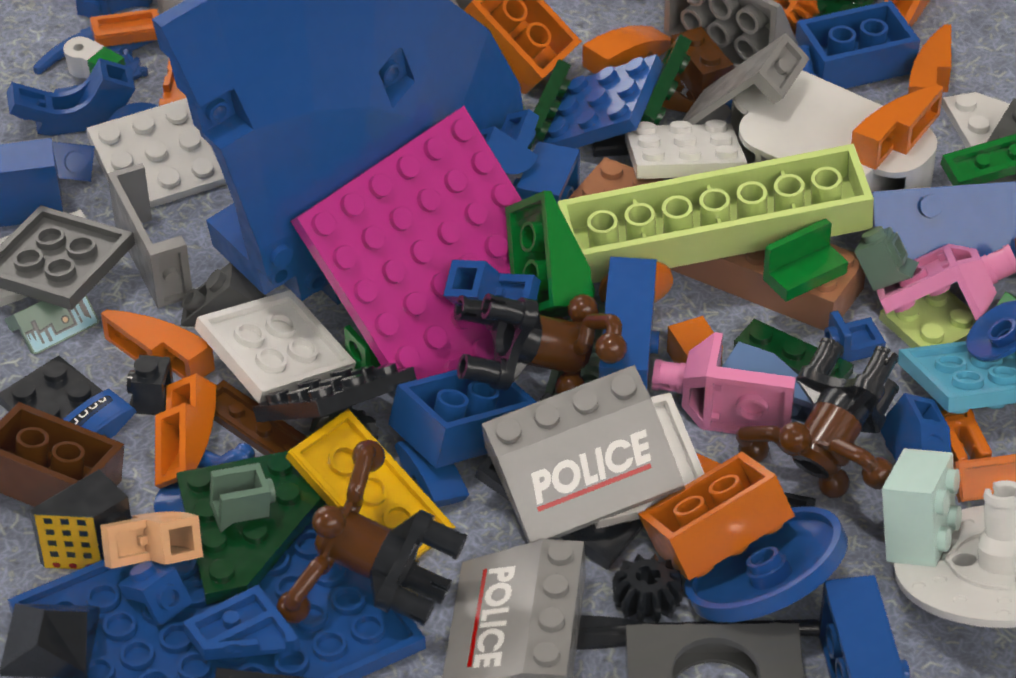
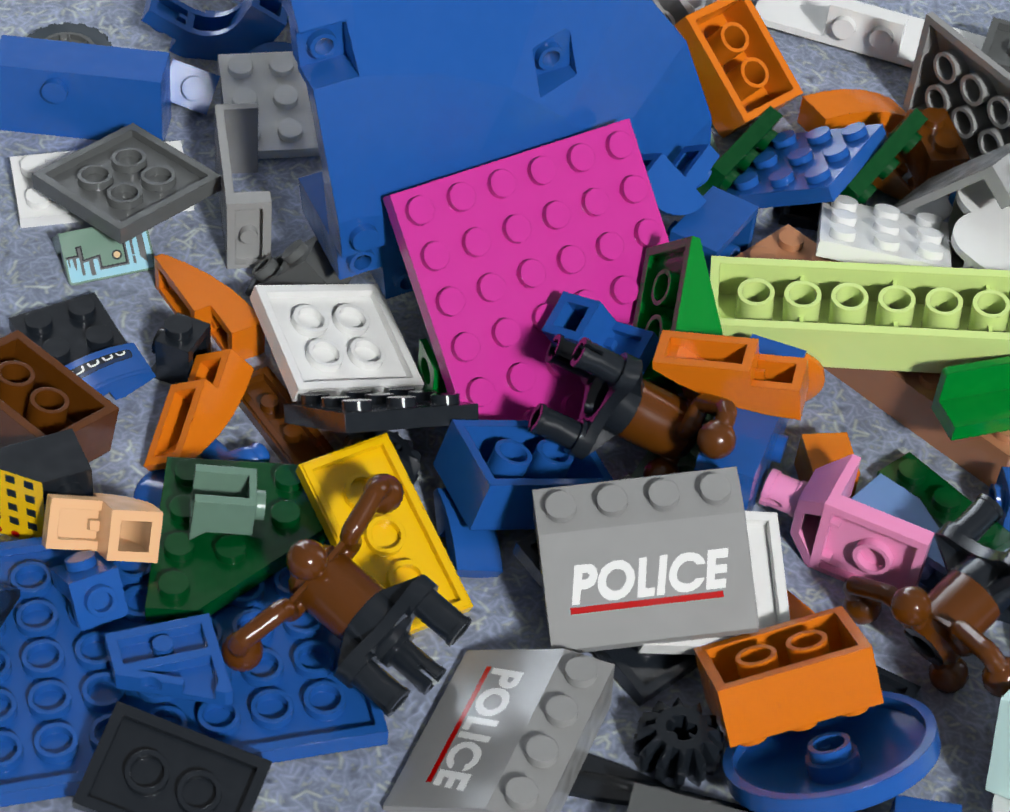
camera: 10 degrees right, 0 degrees up
(607, 290) = (734, 371): none -> orange slope

